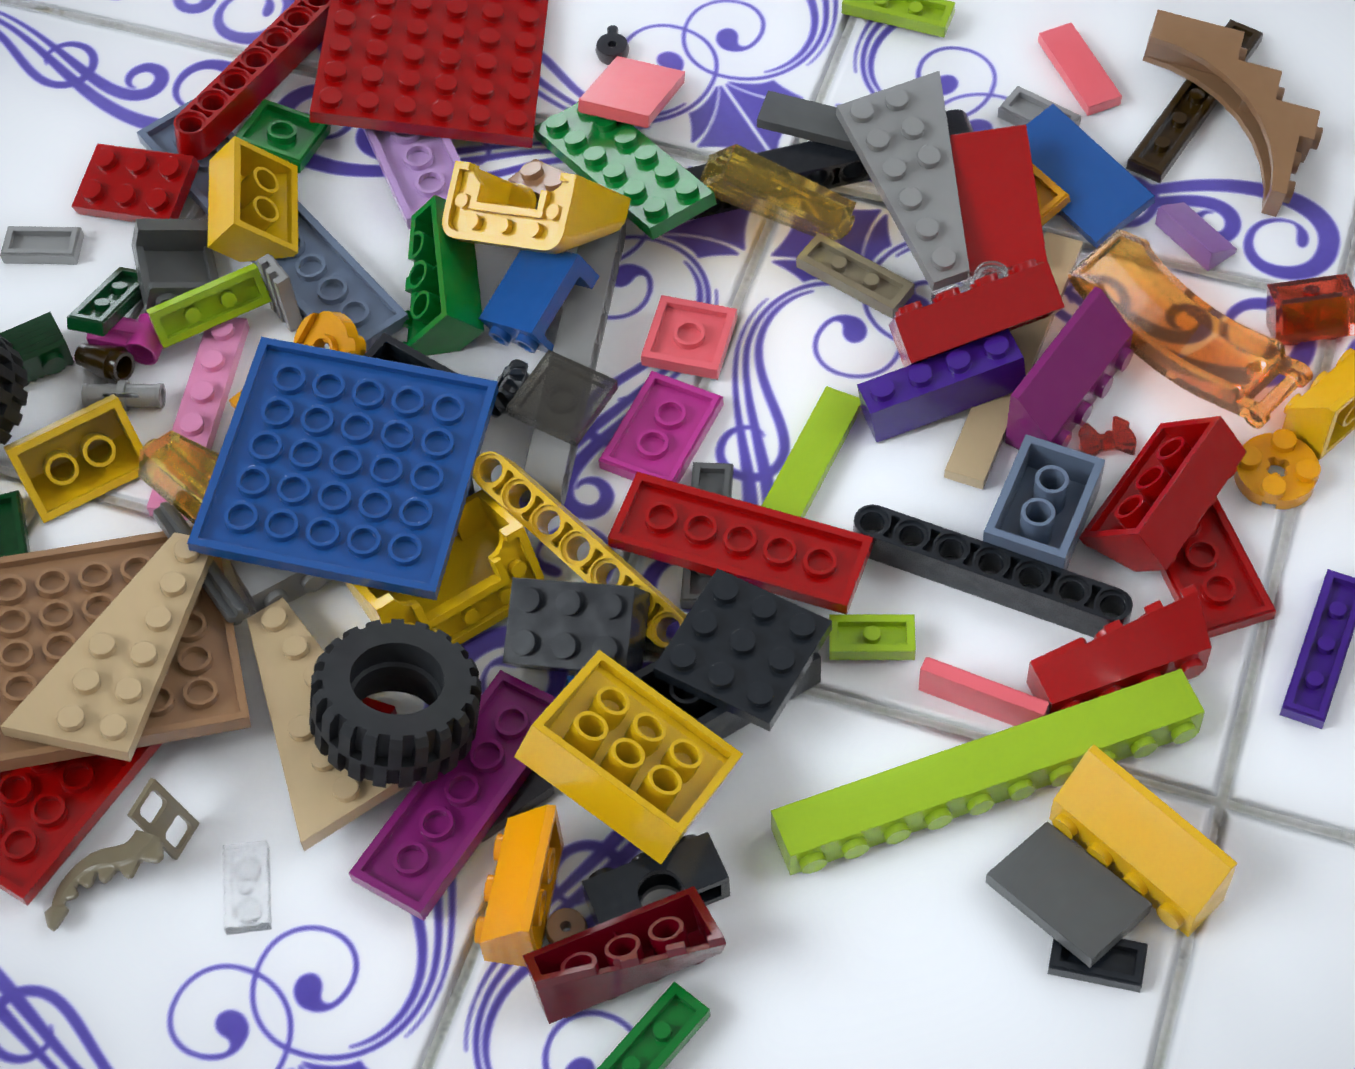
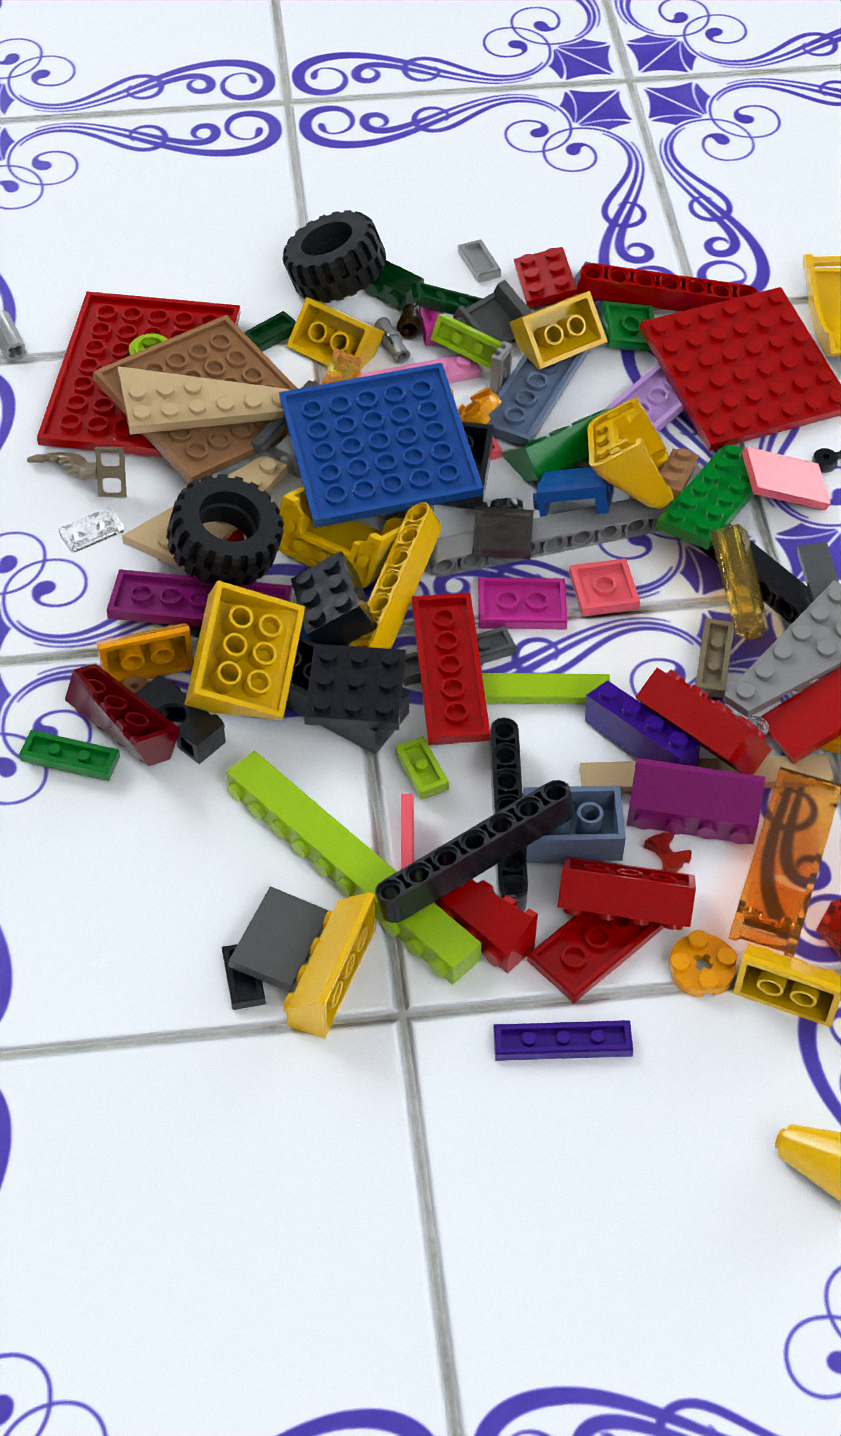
camera: 60 degrees right, 5 degrees down
(1064, 594) = (474, 851): none -> black beam

